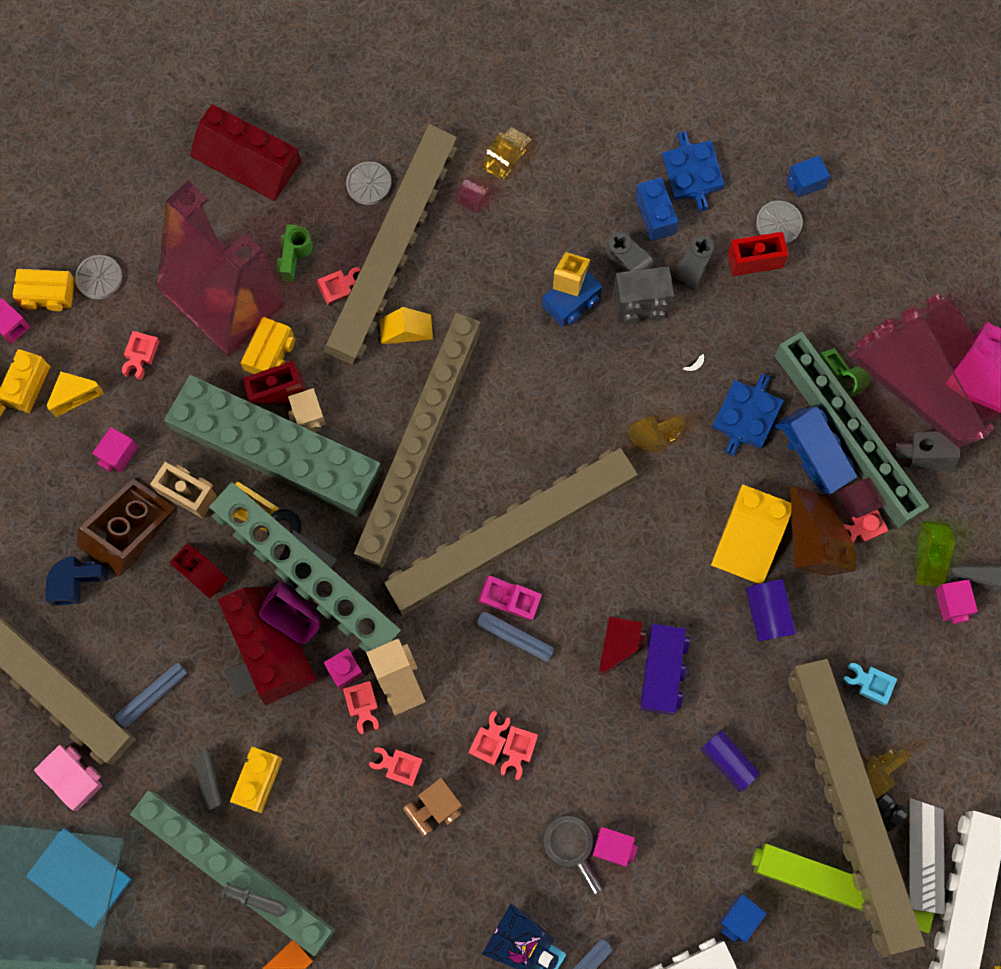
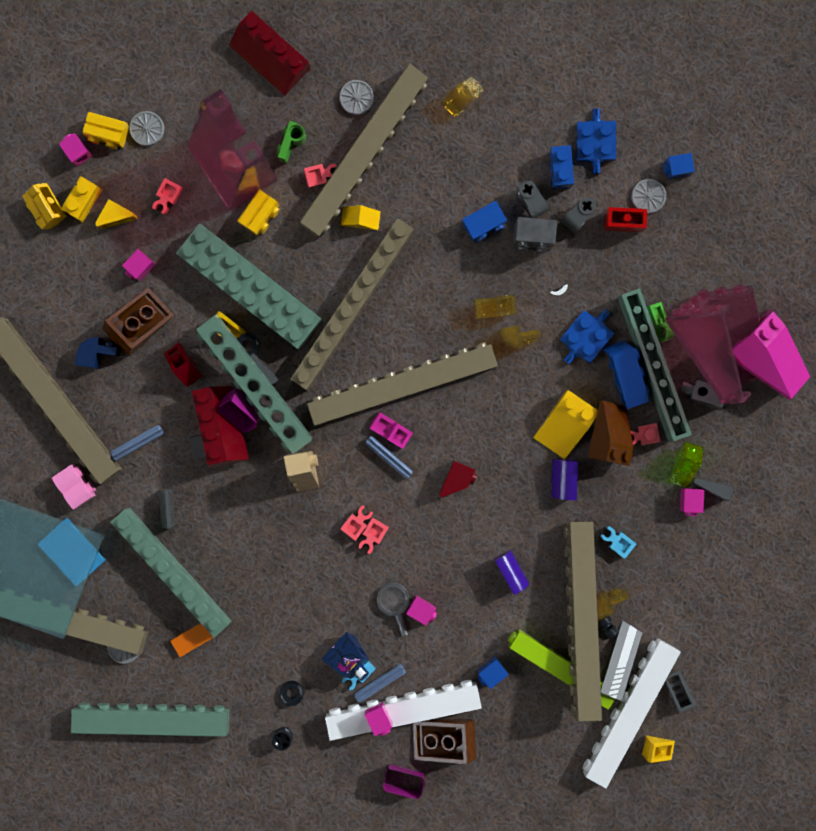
camera: 10 degrees right, 15 degrees up
(183, 489) = (180, 305): tan brick -> none
(256, 779) = (197, 516): yellow brick -> none
(260, 902) = (188, 600): dark grey piece -> none
(275, 384) = (259, 243): dark red slope -> none
(306, 410) = (277, 266): tan brick -> none
(344, 669) = (268, 455): dark pink brick -> none
(361, 702) = (276, 478): coral plate -> none
(400, 767) = (293, 528): coral plate -> none
(438, 803) = (313, 556): medium nougat brick -> none
(473, 194) = (431, 124): clear pink brick -> none
(570, 274) = (487, 206): yellow slope -> none
(614, 401) = (495, 307): none -> clear yellow brick
(664, 669) = (483, 503): dark purple brick -> none
(860, 498) = (647, 416): clear pink brick -> none

